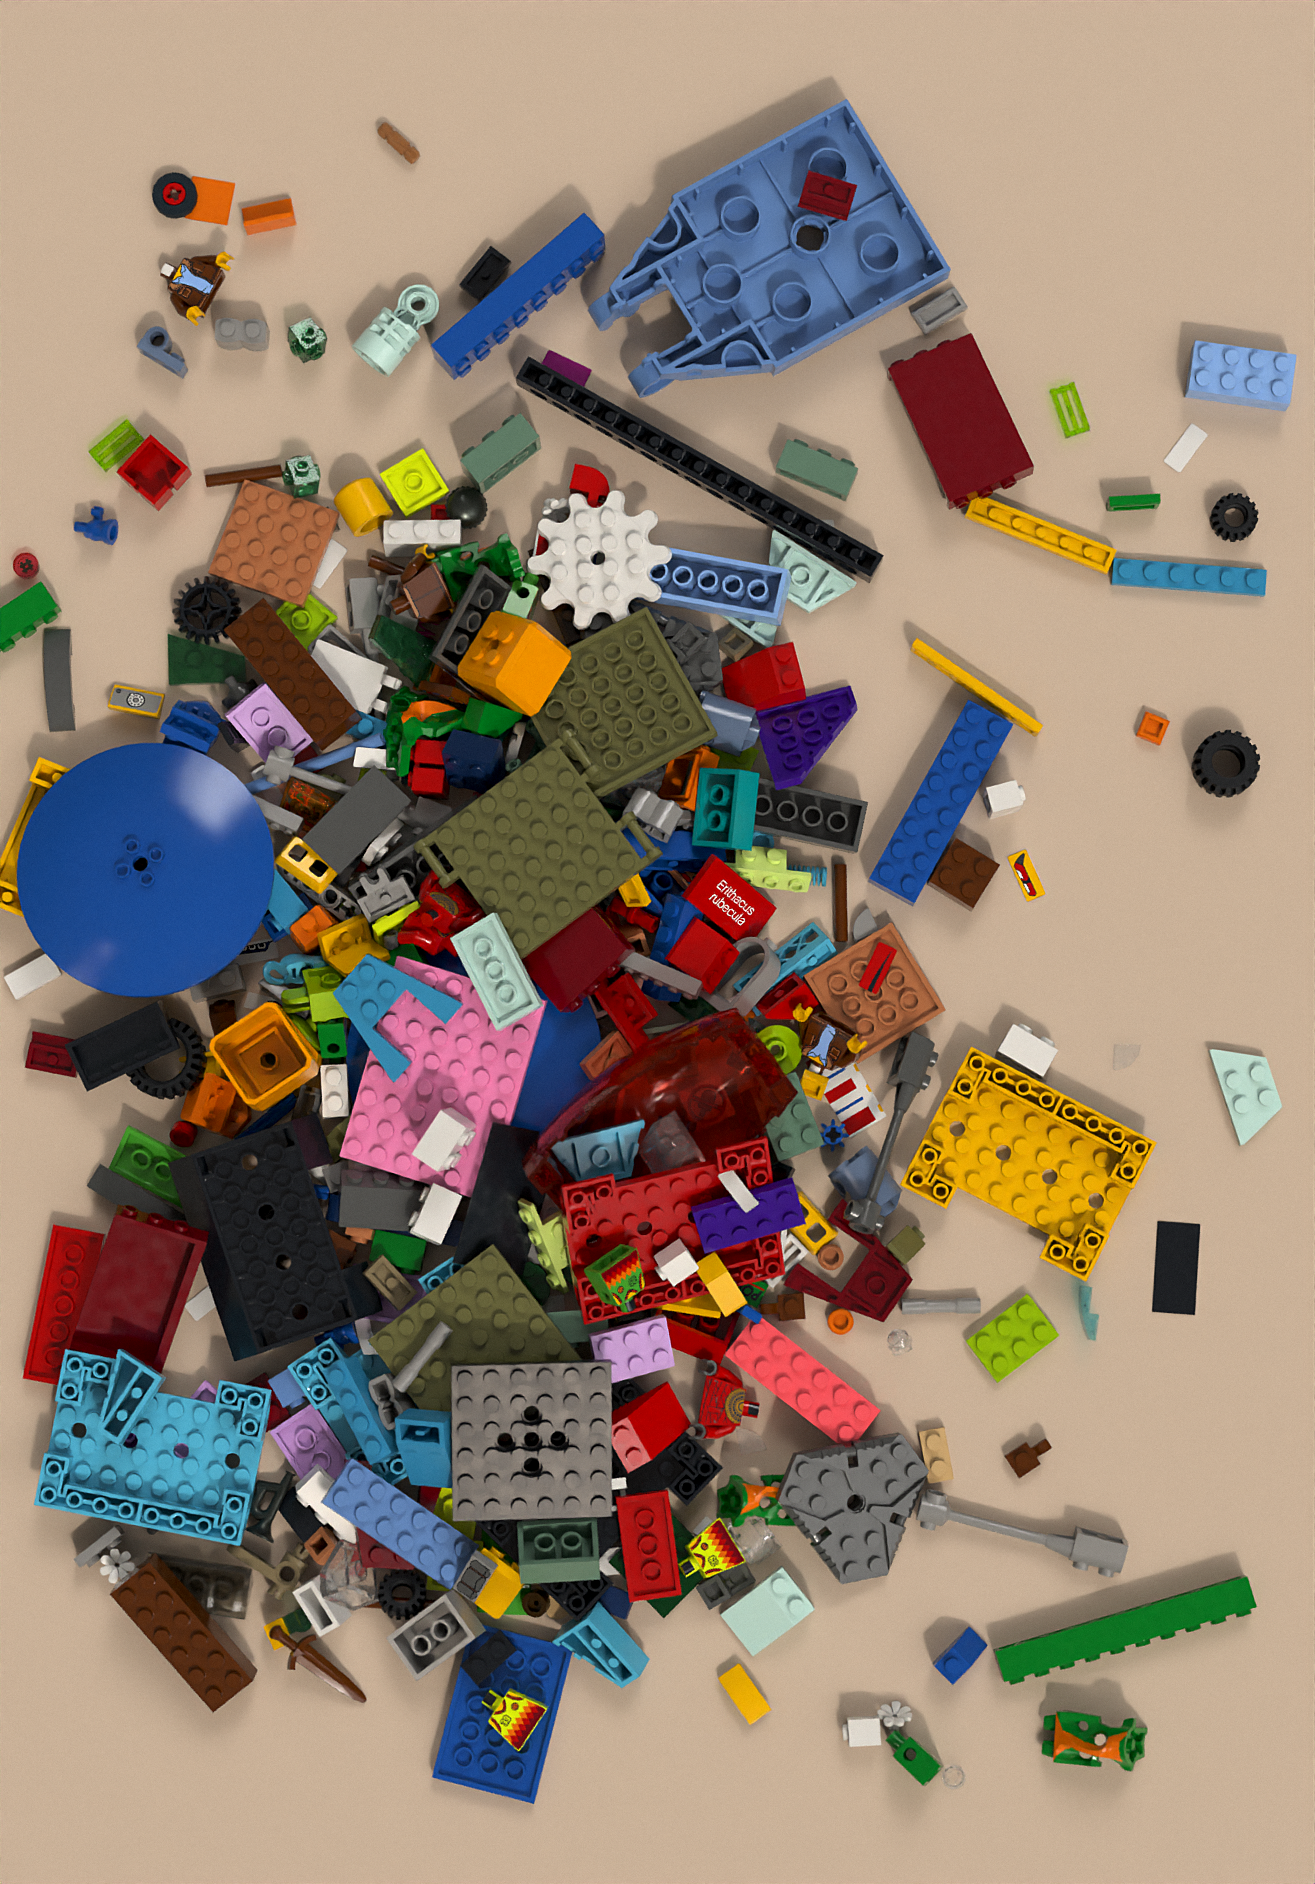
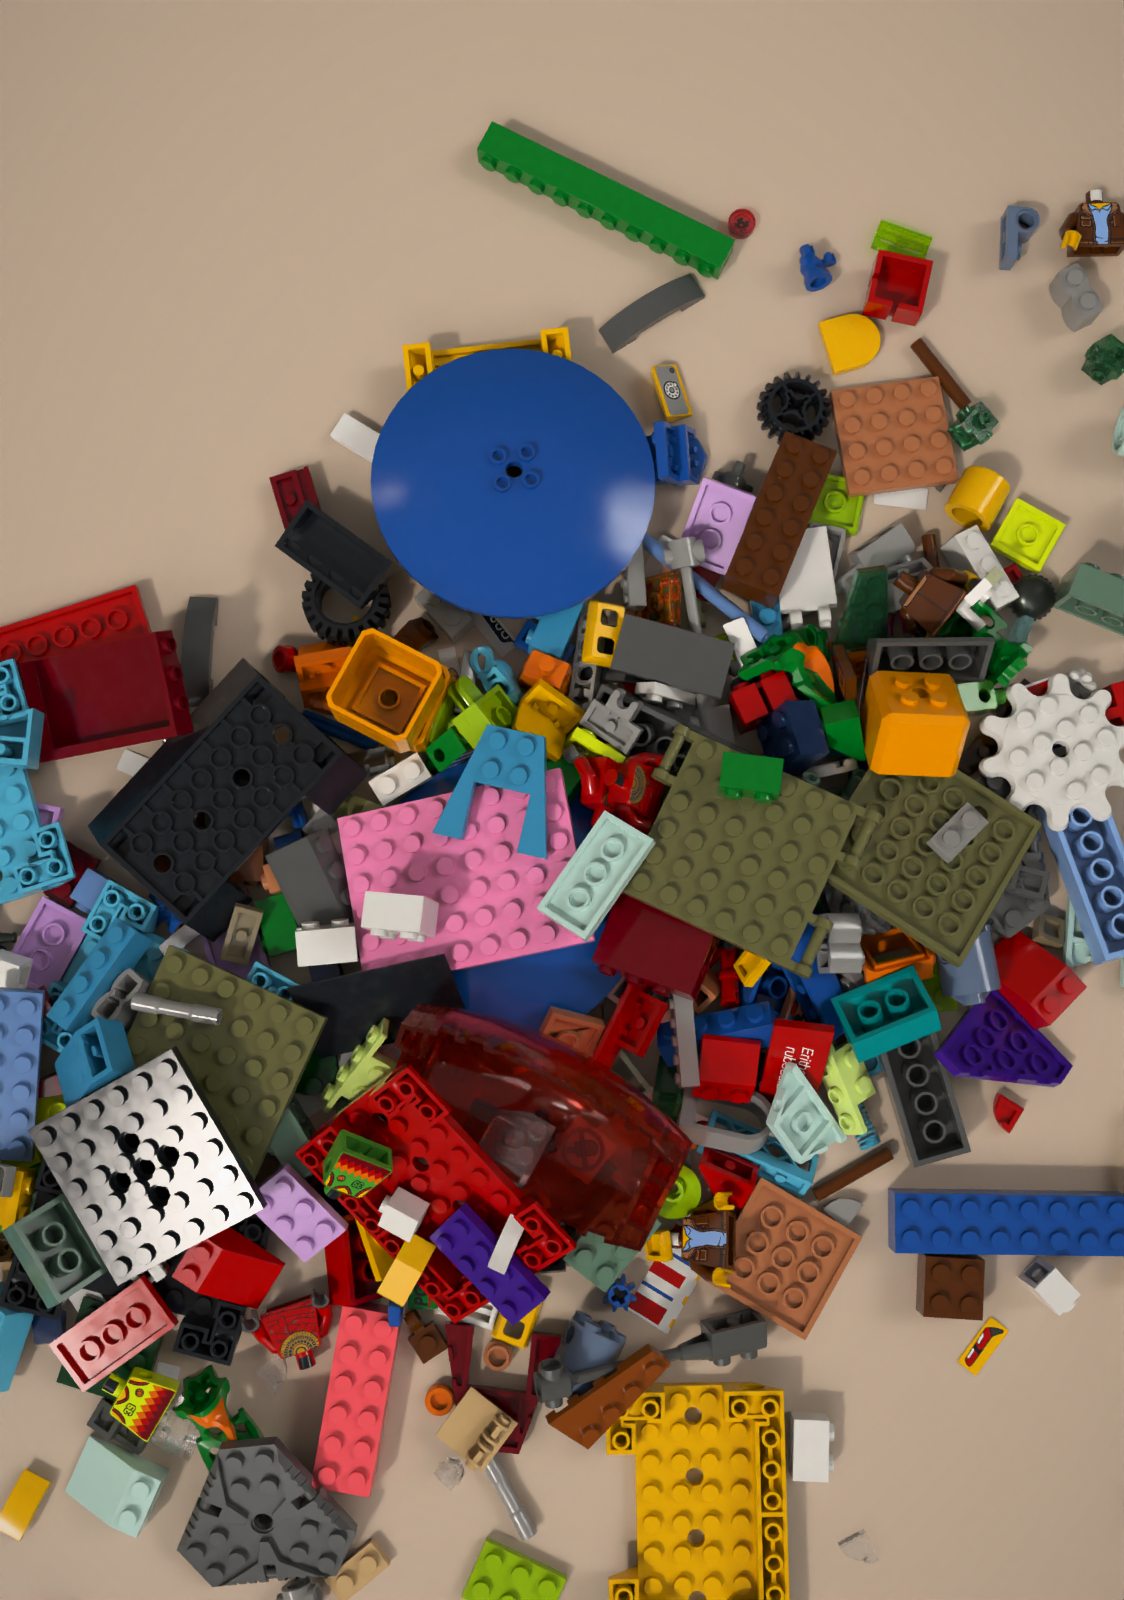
camera: 60 degrees right, 0 degrees up
(146, 1163) = (239, 636): bright green slope -> none
(175, 534) = (849, 342): none -> yellow tile
(202, 664) = (740, 433): clear green wing -> none
(232, 736) = (686, 496): black slope -> none
(441, 552) = (981, 592): none -> white plate
(486, 812) = (750, 777): none -> green brick
(487, 531) = (1021, 629): none -> clear light blue tile
(600, 1151) = (474, 1078): medium azure wing -> none
(616, 677) = (957, 832): none -> light grey plate
(772, 918) = (801, 1118): none -> light aqua wing
(858, 757) = (1006, 1112): none -> red tile
(875, 1301) = (476, 1429): none -> tan hinge
(877, 967) = (809, 1248): red sticker -> none
(904, 1192) = (599, 1408): none -> dark orange wing
(906, 1244) = (542, 1435): olive slope -> none

